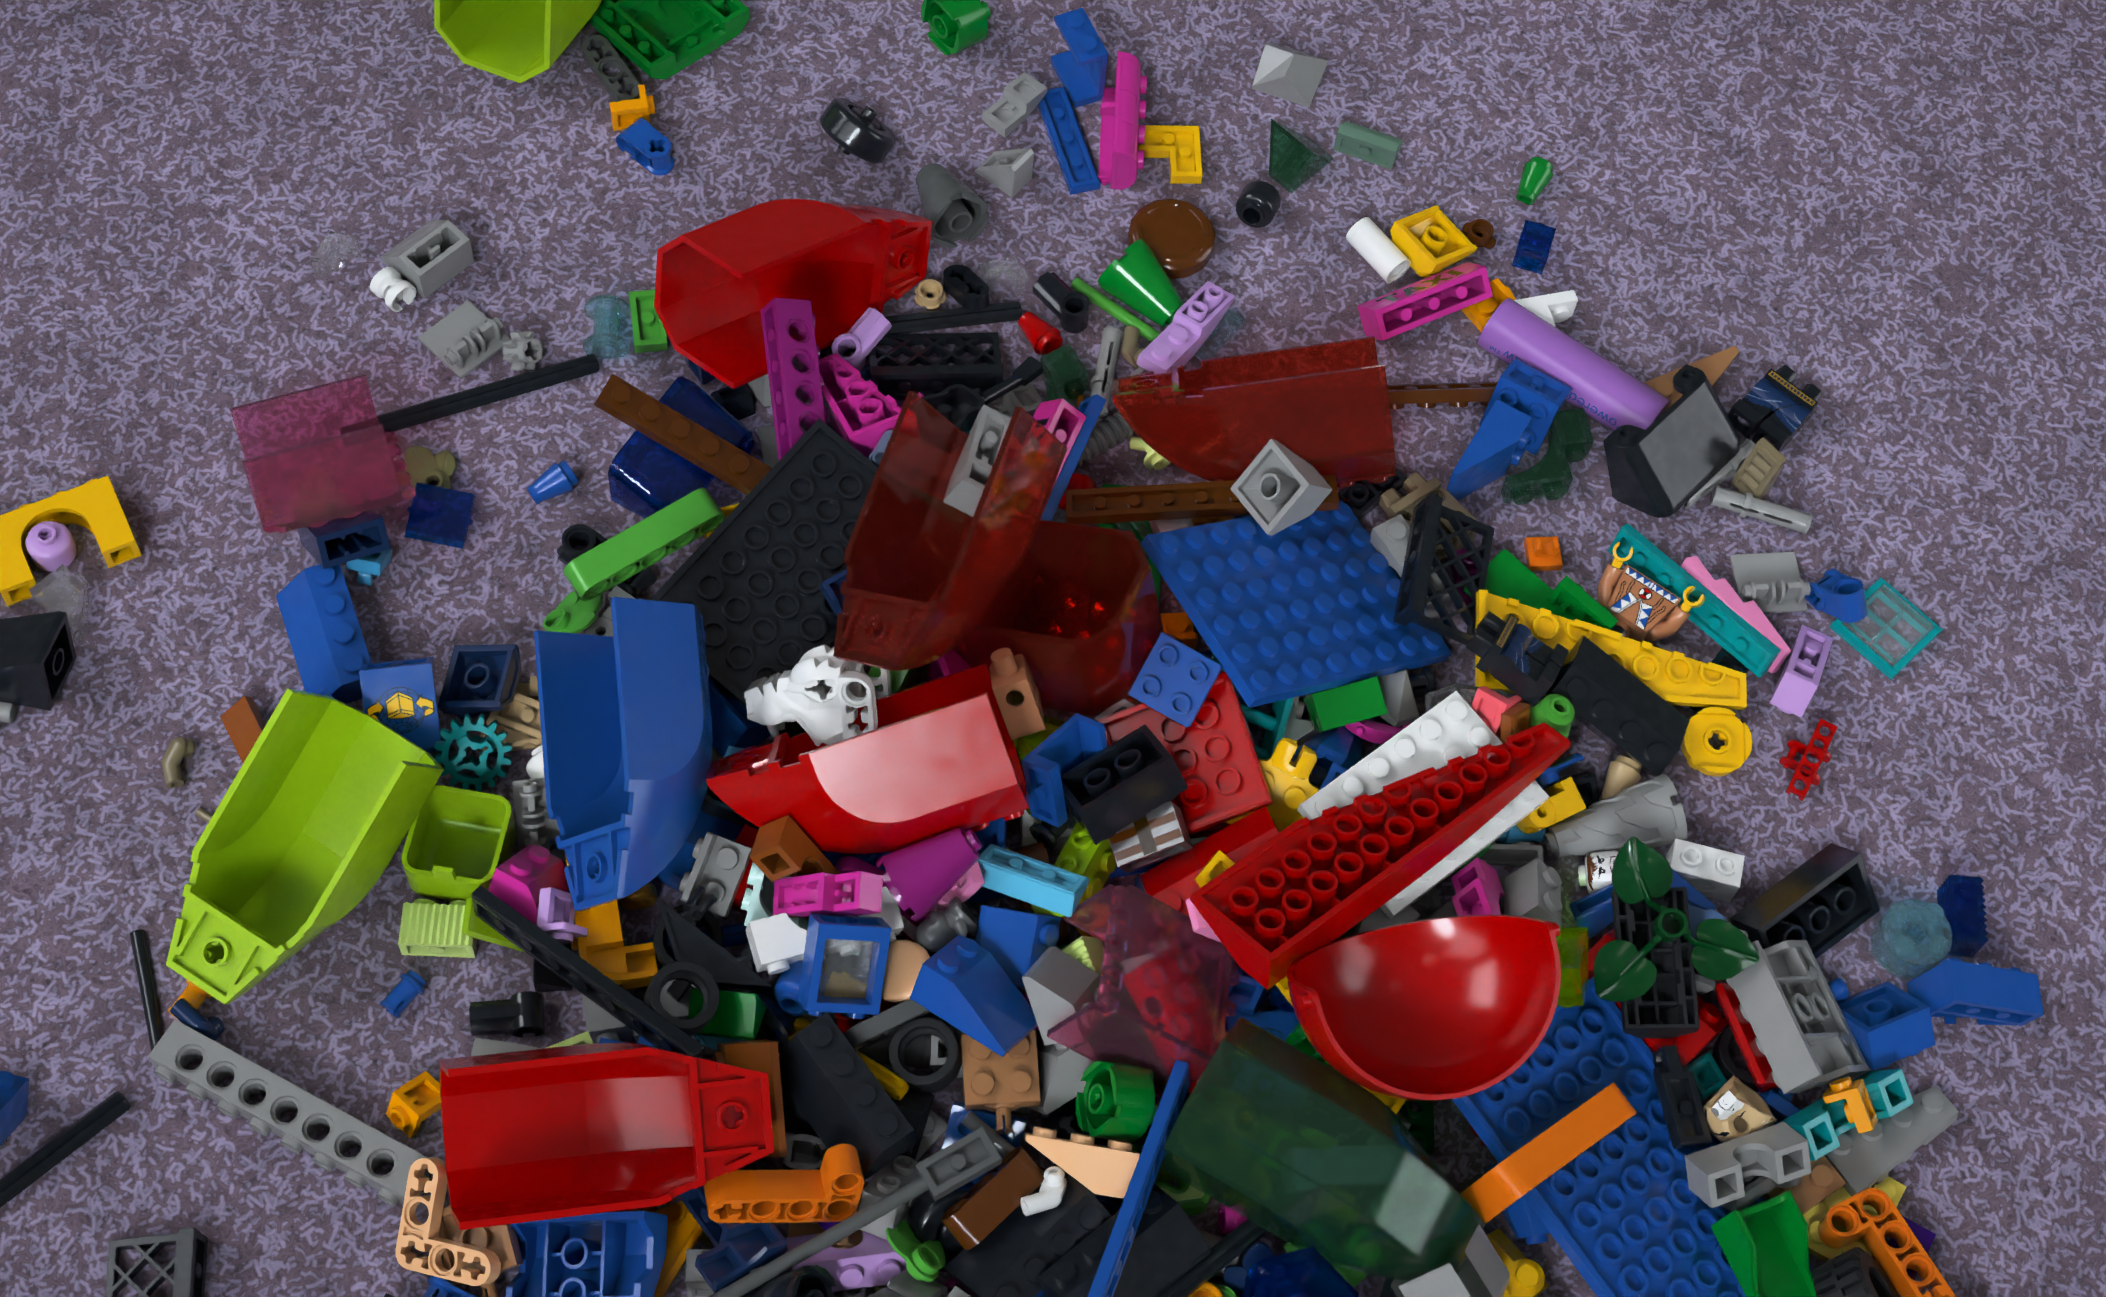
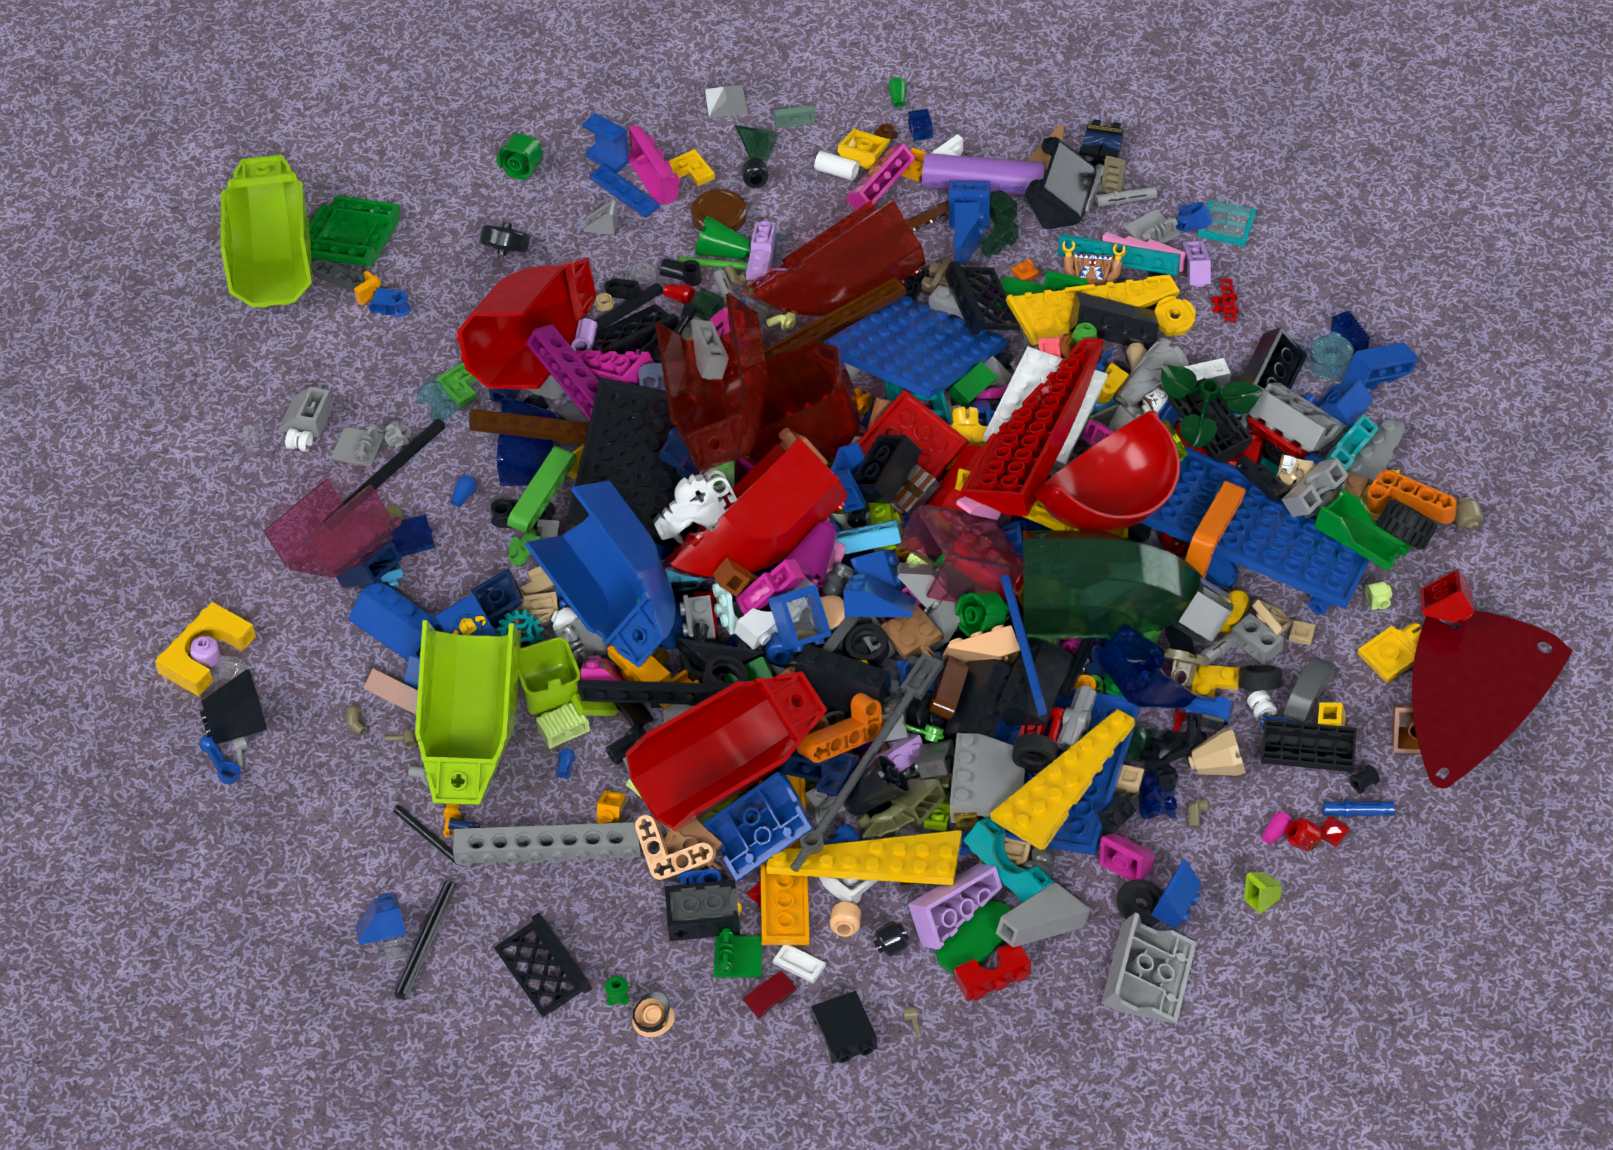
camera: 20 degrees left, 10 degrees down
(557, 916) = (625, 672): lavender bracket -> none
(951, 206) = (580, 246): dark grey cone -> none
(1015, 106) = (583, 186): light grey slope -> none
(1049, 1195) = (976, 670): white arm -> none
(1175, 680) = (880, 407): blue bracket -> none
(1280, 488) = (870, 294): light grey slope -> none
(1516, 656) = (1048, 316): black hips -> none
(1858, 1105) = (1352, 441): light orange bracket -> none

